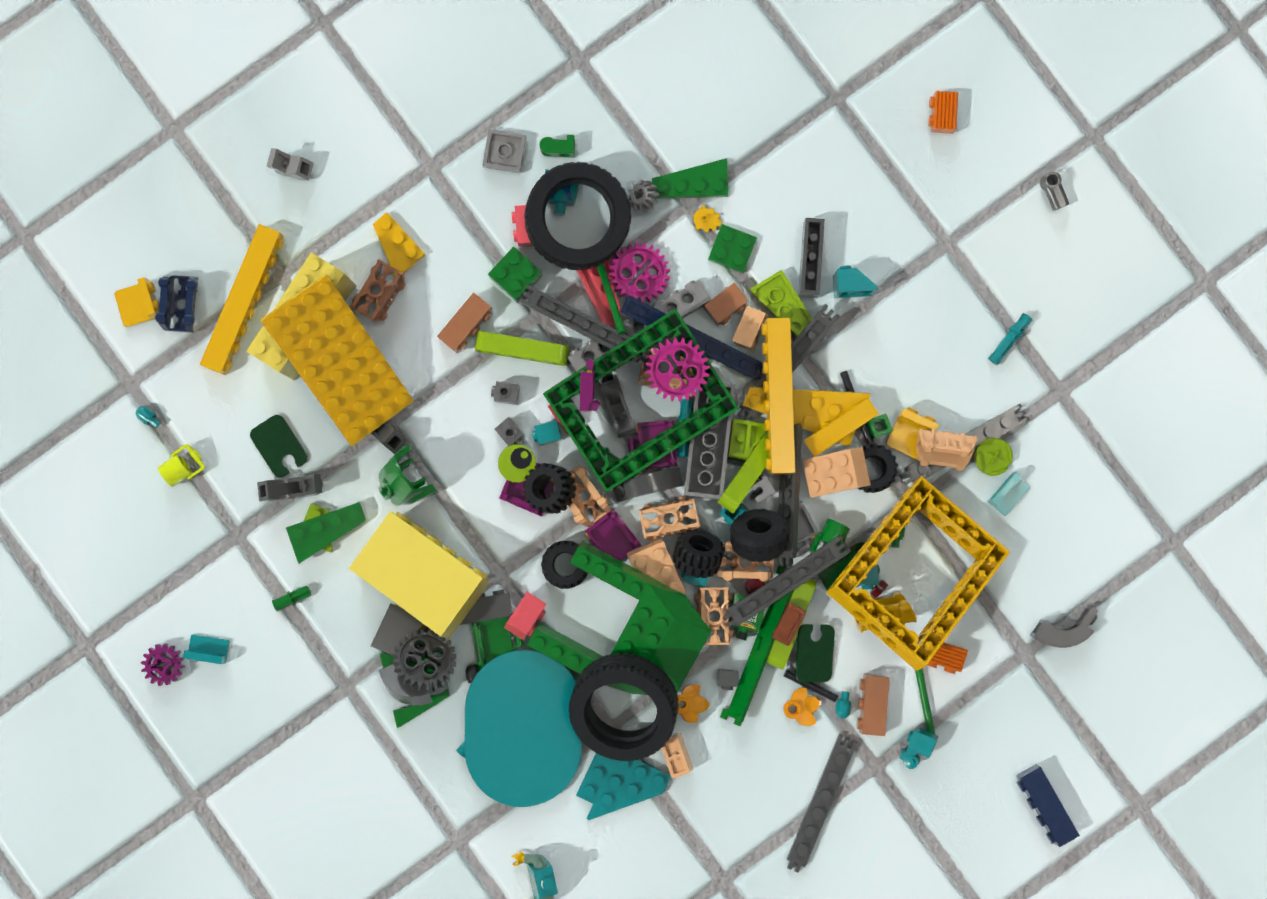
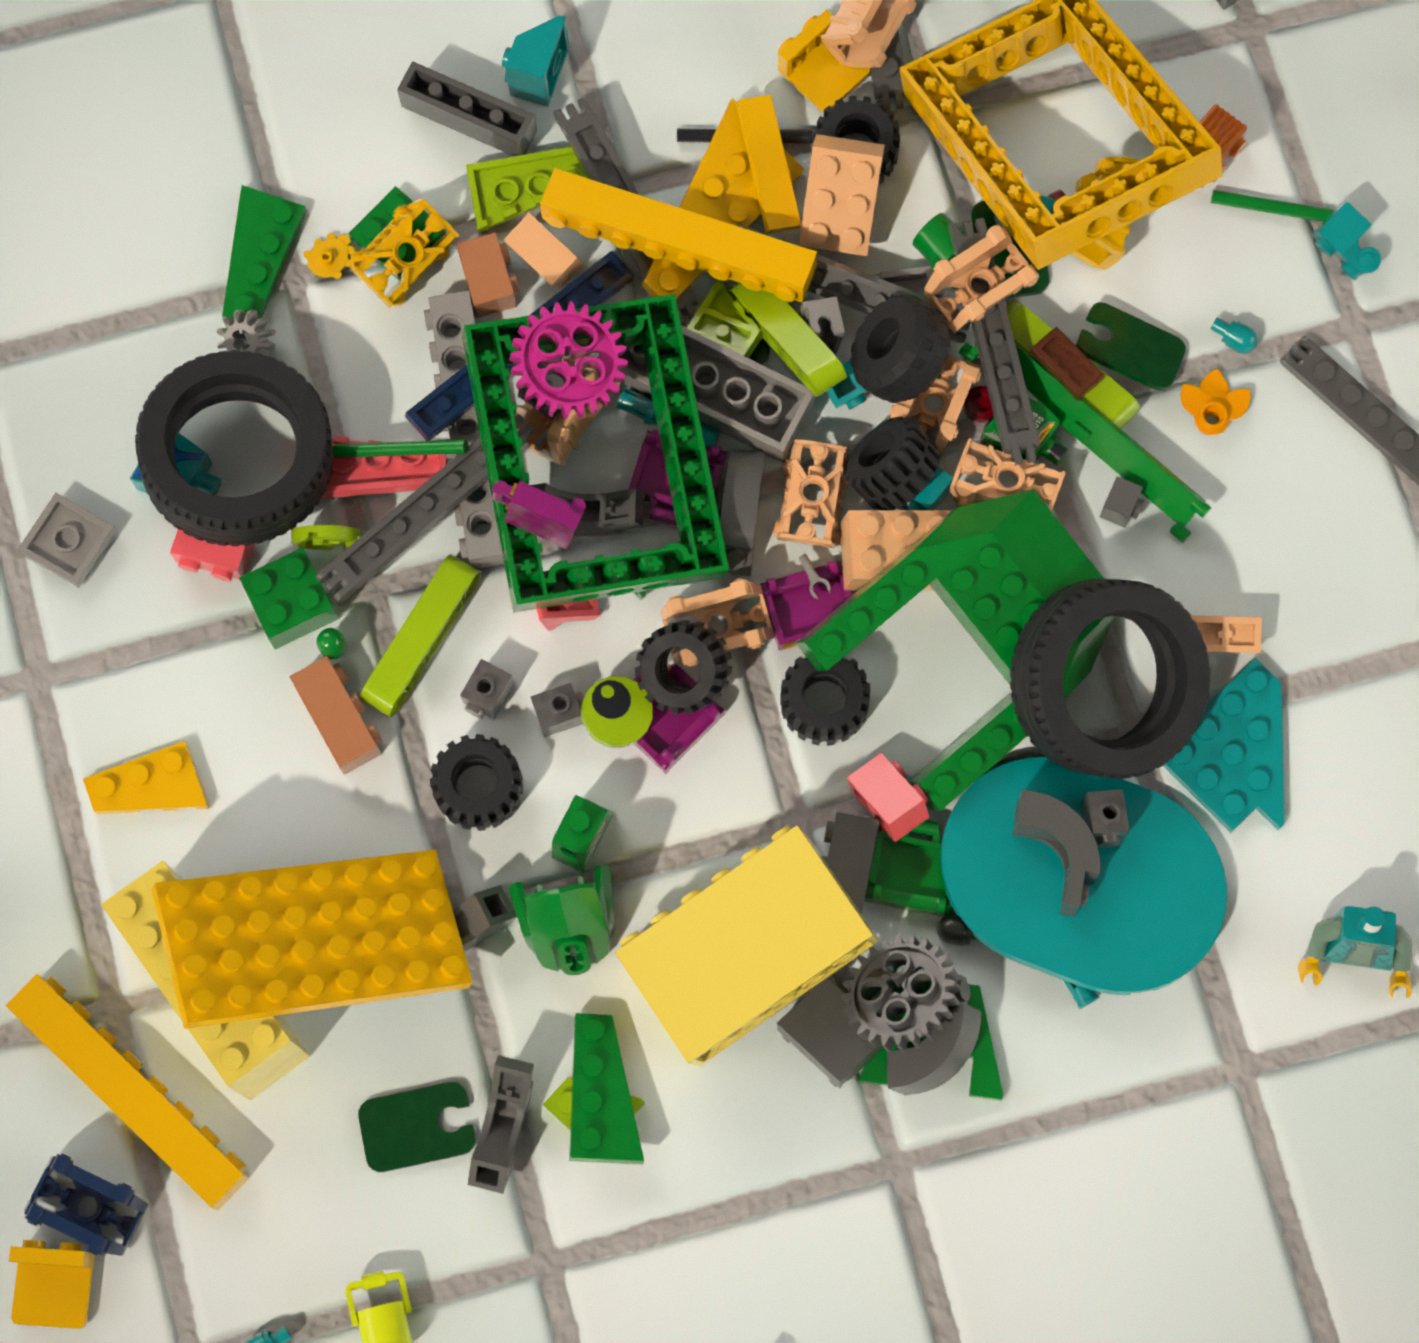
camera: 65 degrees left, 10 degrees down
(291, 598) = (699, 1203): green axle -> none
(384, 298) = (222, 821): nougat piece -> none
(444, 395) = (468, 754): none -> black tyre
(452, 469) = (580, 833): none -> green torso
(499, 306) = (331, 643): none -> green cylinder
(540, 708) = (1065, 831): none -> dark grey arch
(546, 433) = (585, 646): teal brick -> none
(552, 281) = (324, 536): none -> lime tile
(553, 729) = (1106, 816): none -> flat silver brick
(558, 148) = (102, 448): green leg -> none
(626, 262) = (345, 407): dark pink gear -> none
(626, 535) = (813, 575): none -> light grey hand
(692, 703) = (1146, 569): light orange plate -> none
(718, 247) = (387, 245): none -> yellow piece
(812, 686) = (1184, 375): black bar -> none
(820, 559) = (974, 264): none -> light nougat piece
(873, 705) = (1251, 285): nougat brick -> none
(885, 423) = (794, 100): green plate -> none

